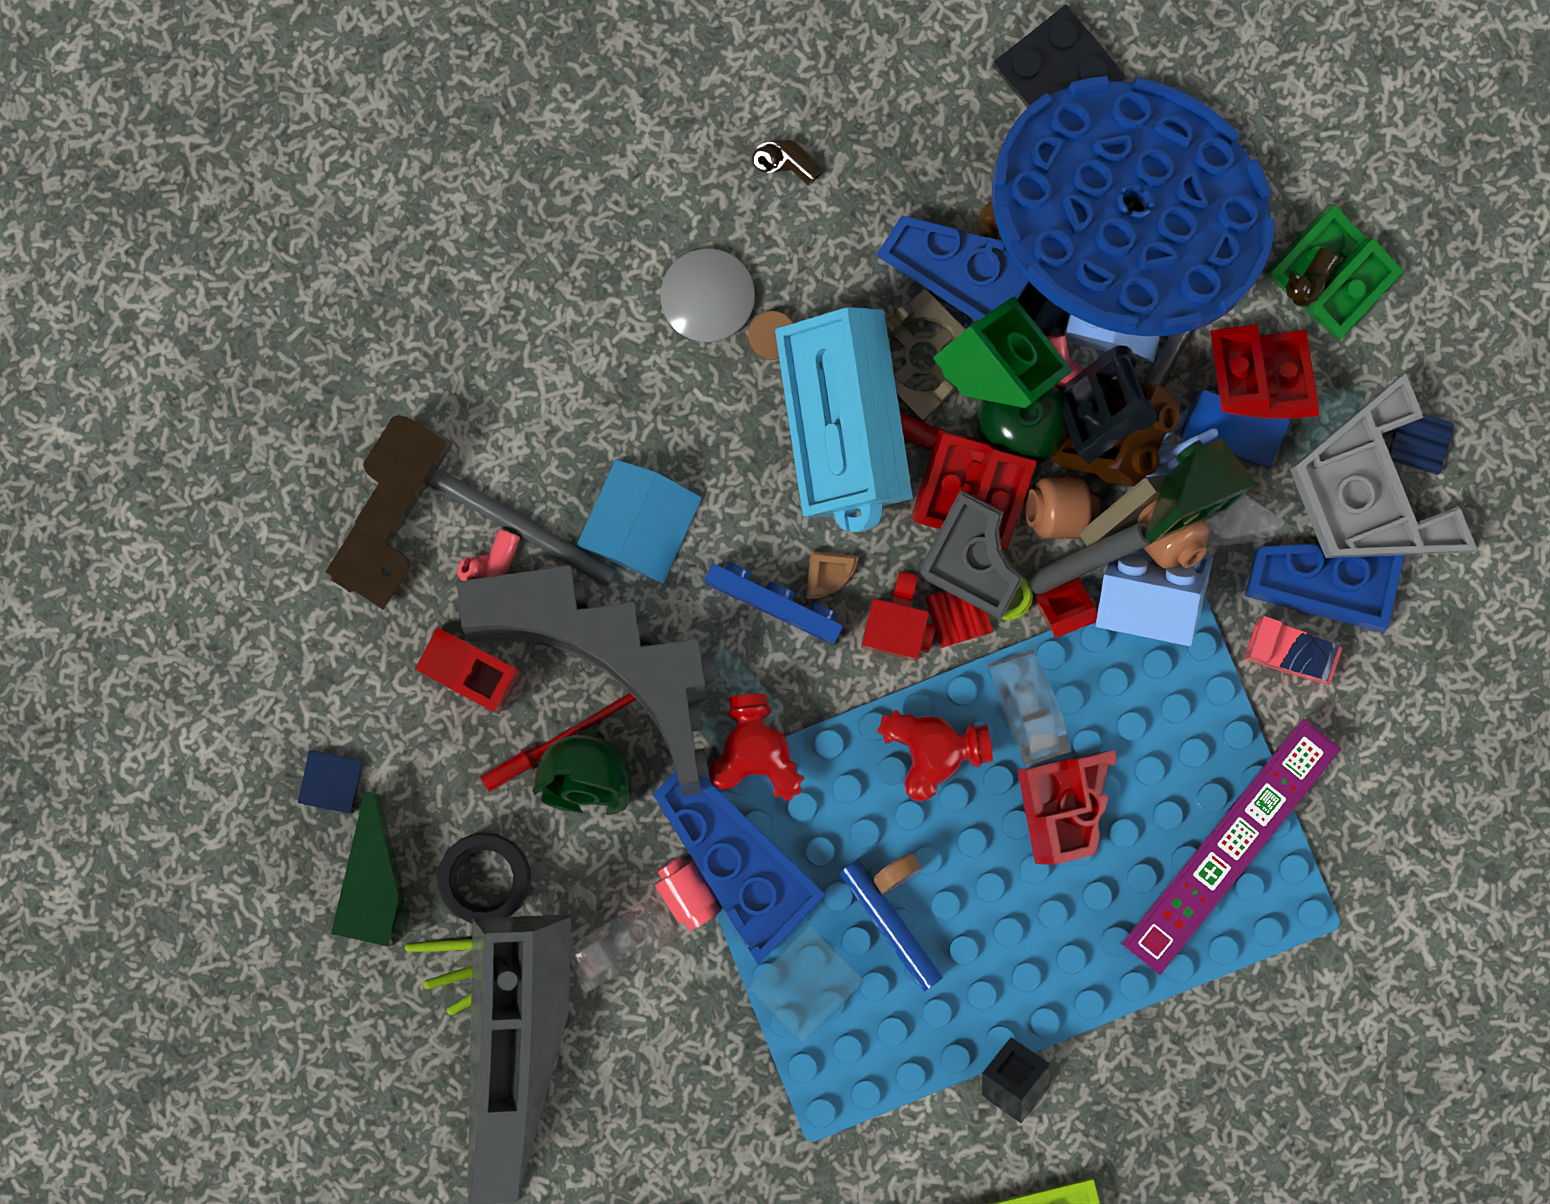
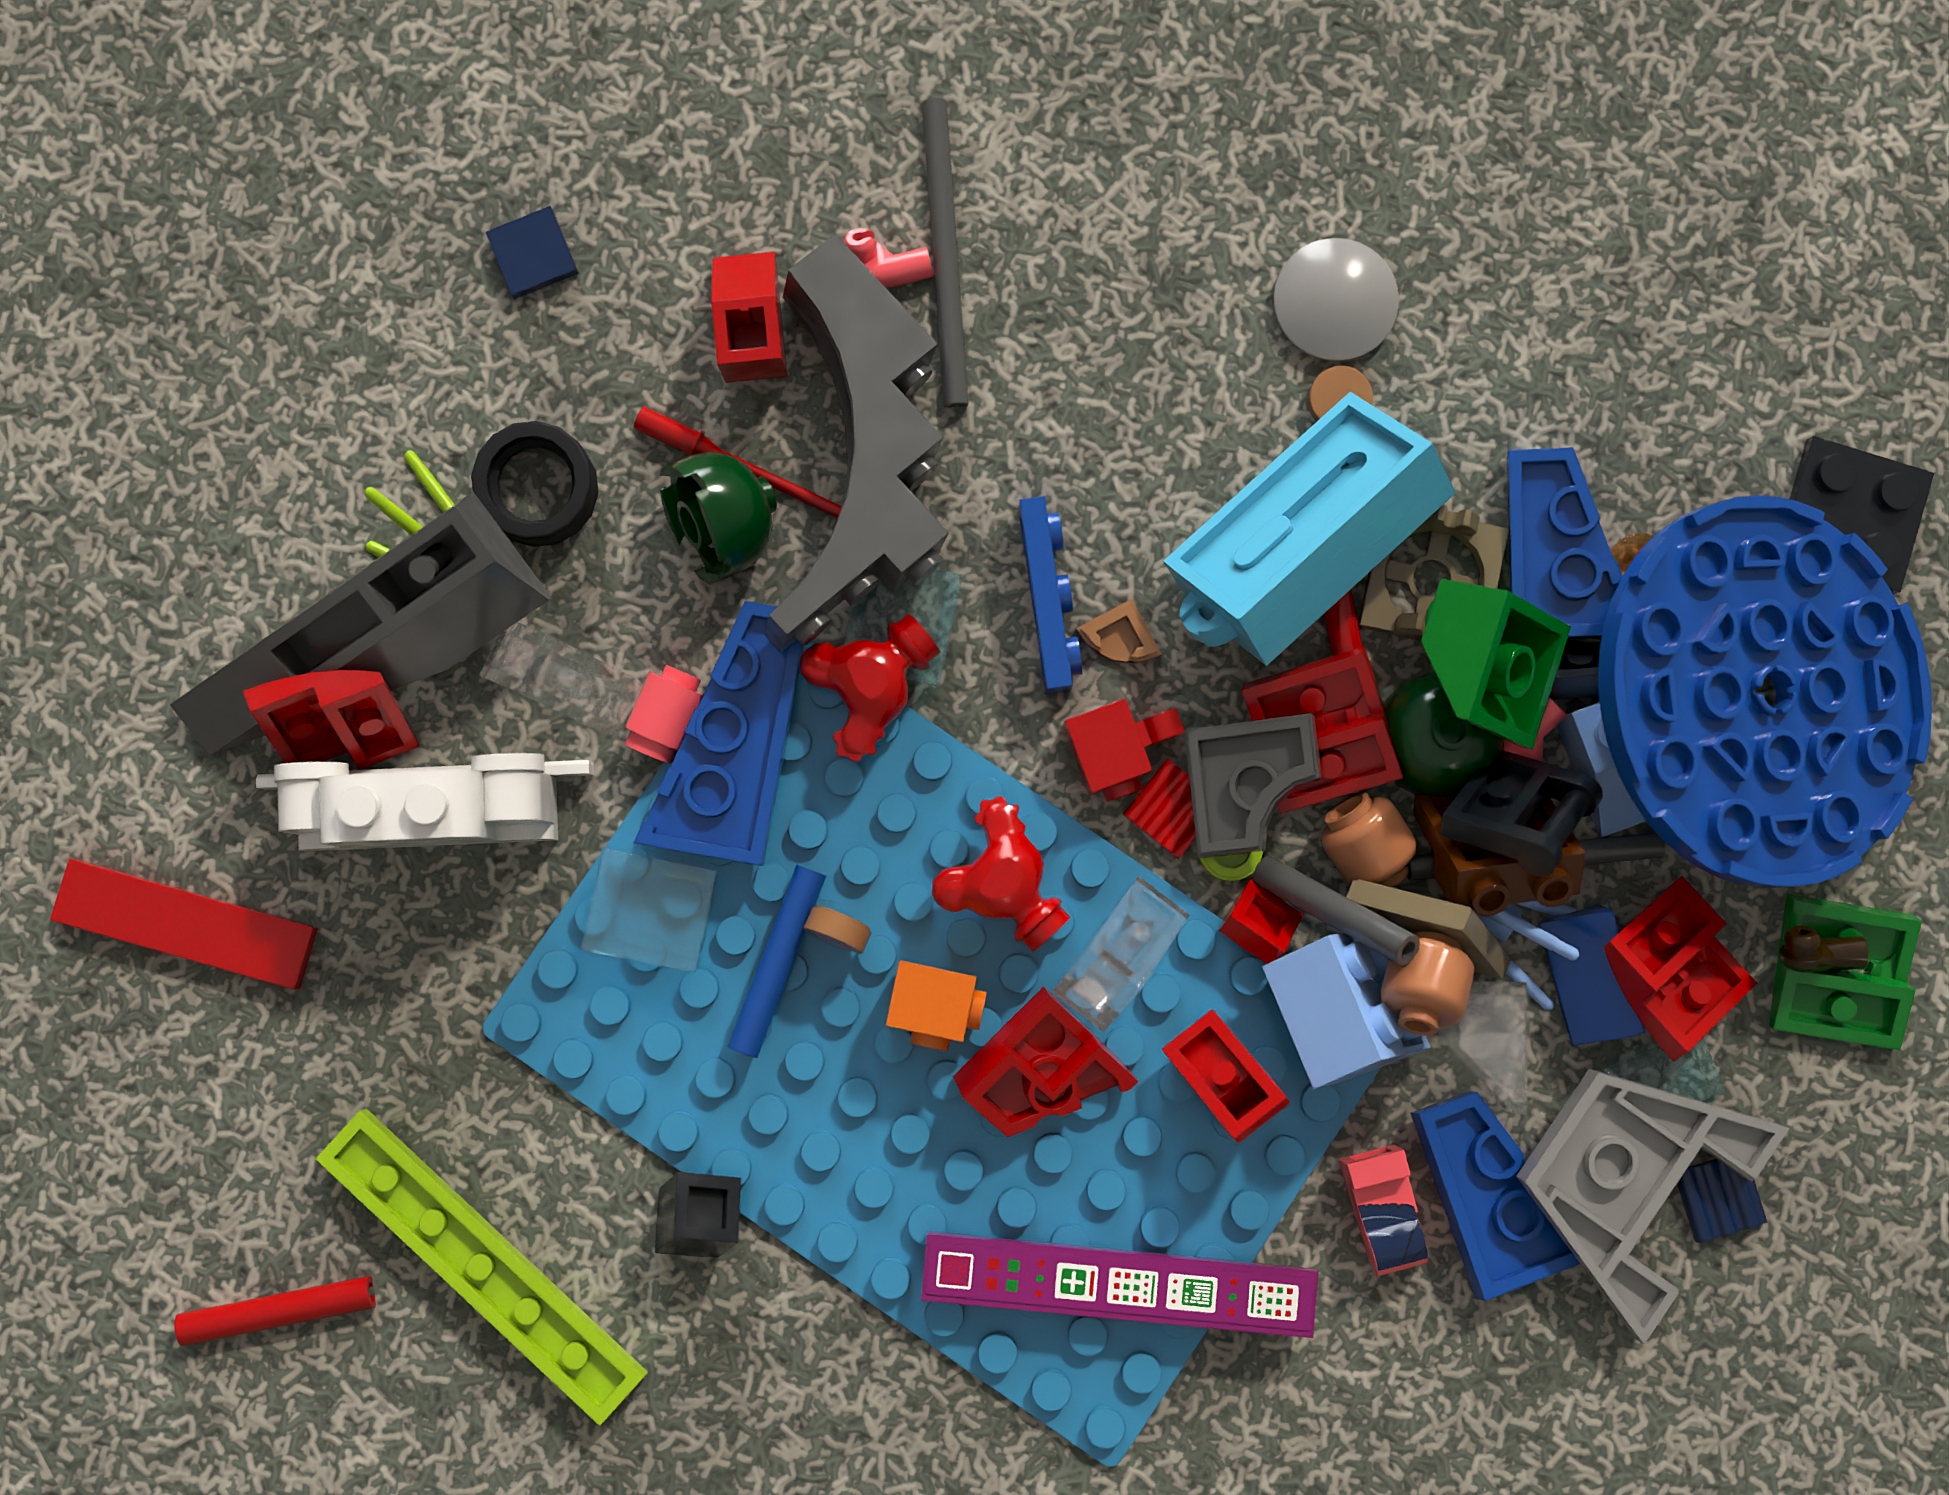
camera: 55 degrees right, 0 degrees up
(371, 886) = (448, 367): dark green slope -> none
(403, 467) = (925, 95): dark brown piece -> none
(548, 1103) = (331, 714): none -> red slope
(639, 520) = (1039, 392): dark azure slope -> none
(641, 1084) = (478, 803): none -> white brick
(786, 156) = (1547, 282): dark brown arm -> none
(984, 844) = (934, 1004): none -> orange brick
(1147, 694) = (1225, 1077): none -> red slope
(1198, 488) = (1499, 977): dark green slope -> none

